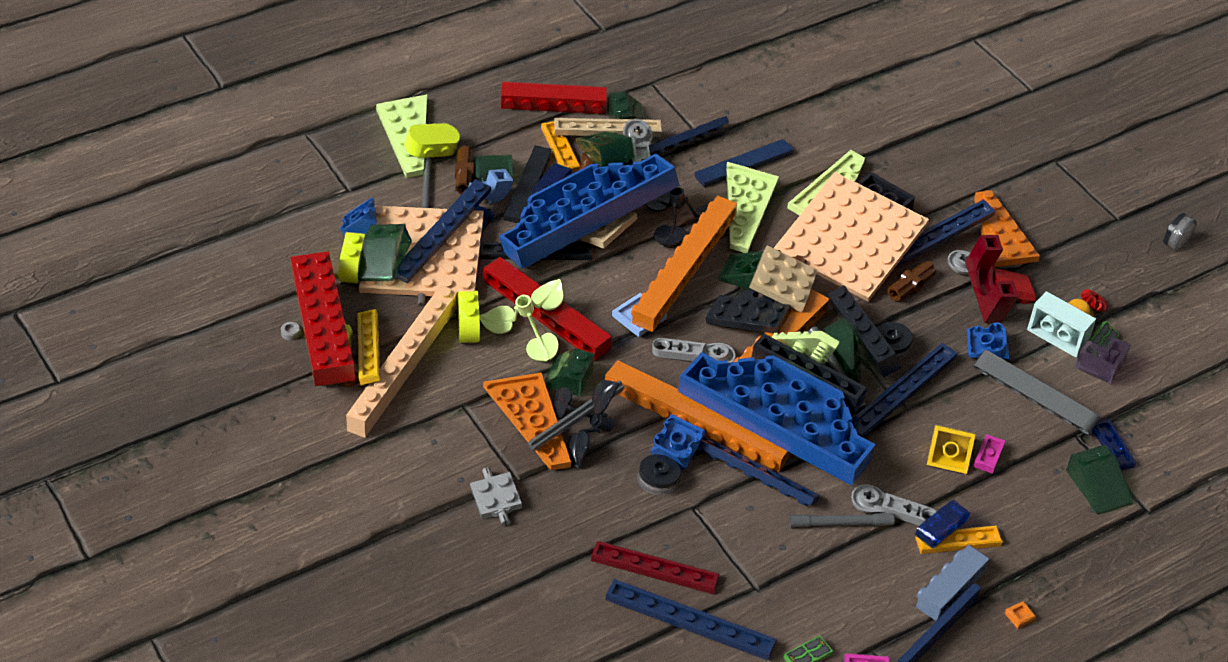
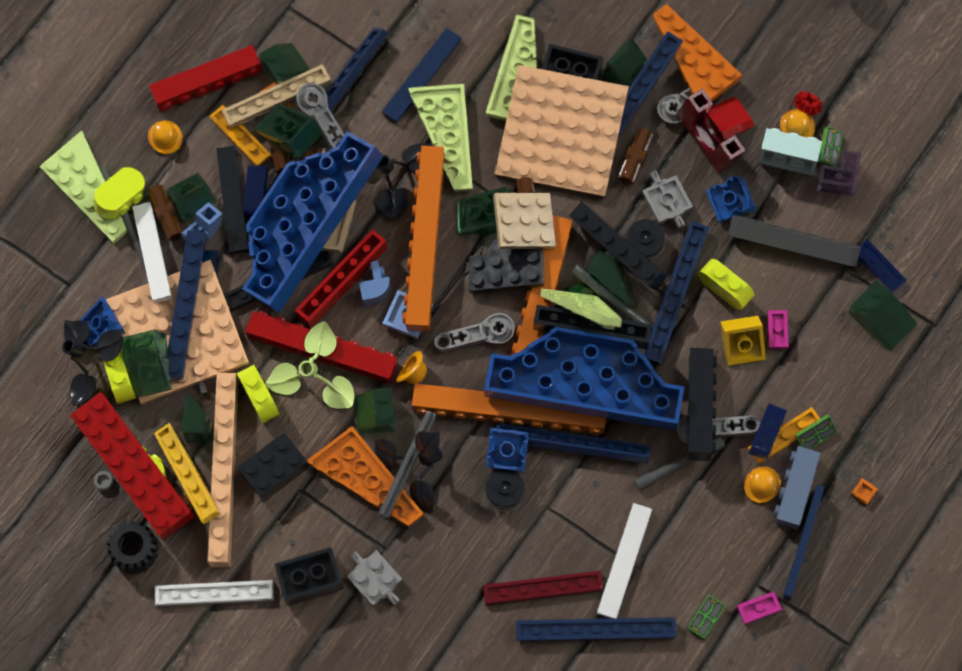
camera: 15 degrees left, 25 degrees up
(273, 385) = (127, 532): none -> black tyre
(331, 219) = (75, 335): none -> black plant
(338, 450) = (214, 593): none -> white tile
(398, 313) = (195, 423): none -> clear green slope
(433, 465) = (308, 576): none -> black brick
(435, 189) = (152, 252): none -> white tile
(450, 375) = (273, 467): none -> black brick
(495, 123) = (165, 137): none -> light orange hat
(595, 264) = (341, 279): none -> red brick
(620, 286) = (375, 290): none -> medium blue brick
(623, 353) = (413, 370): none -> light orange hat
(748, 576) = (624, 561): none -> white tile
(885, 476) = (700, 404): none -> black brick
(917, 568) = (762, 484): none -> light orange hat
(927, 321) = (667, 199): none -> light grey plate
(935, 206) = (625, 64): none -> clear green slope
(954, 398) = (726, 284): none -> neon yellow brick
(993, 545) = (816, 432): none -> tile

